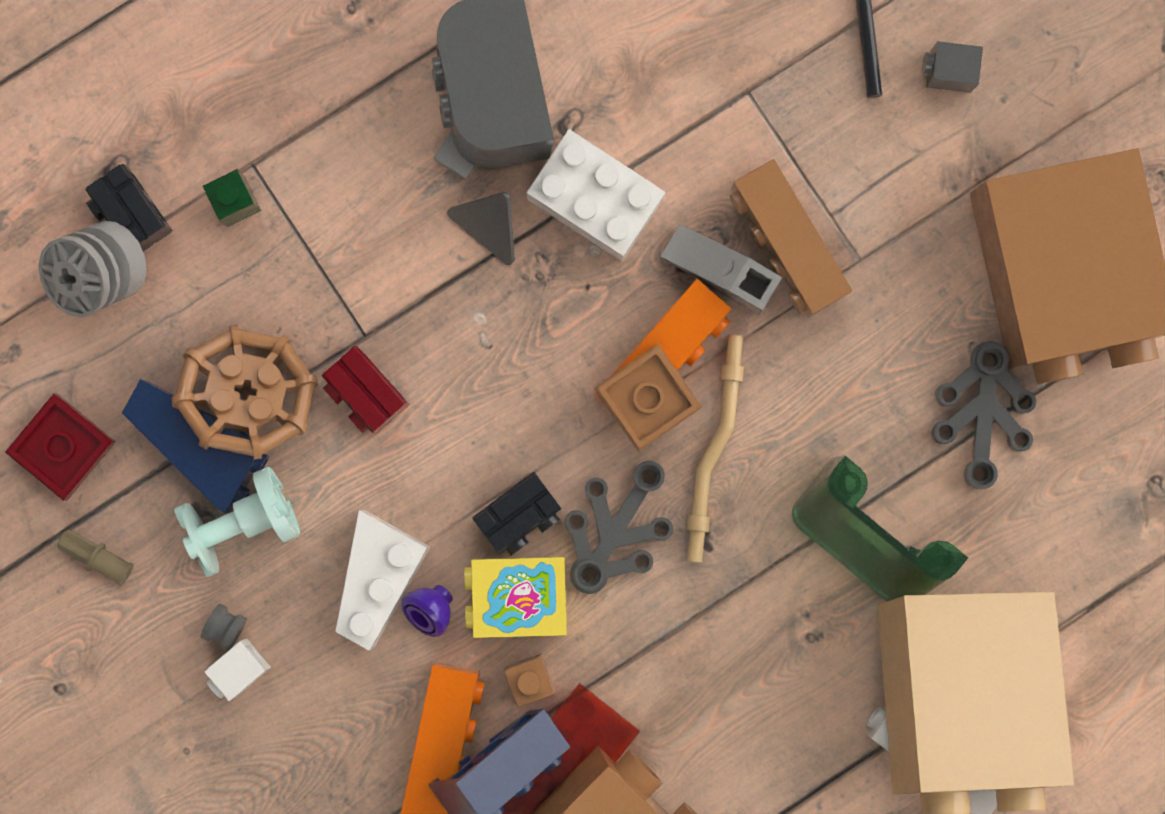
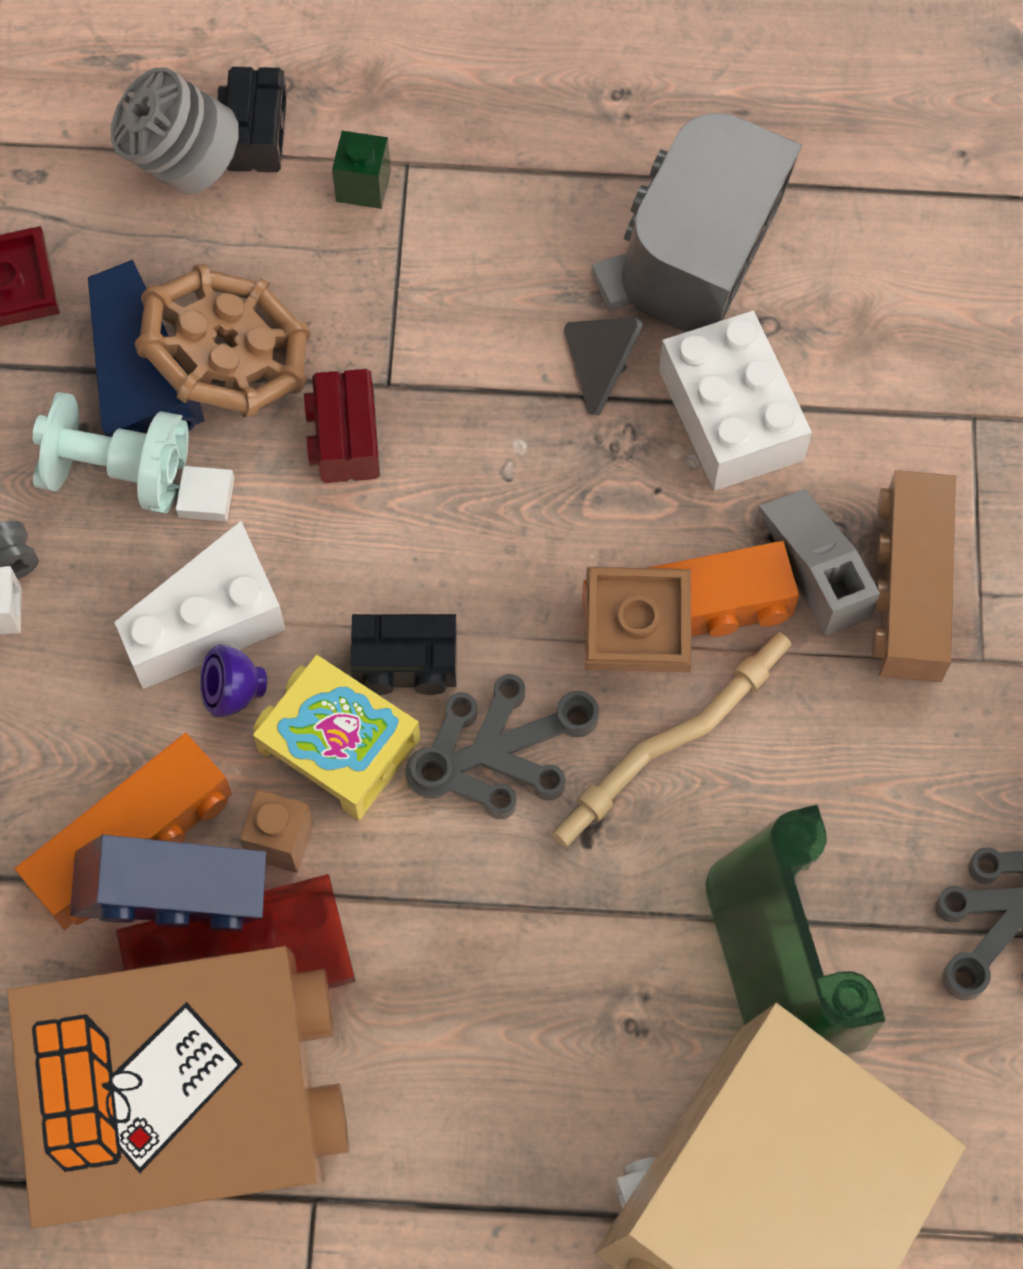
camera: 40 degrees right, 20 degrees down
(311, 497) = (205, 493): none -> white tile

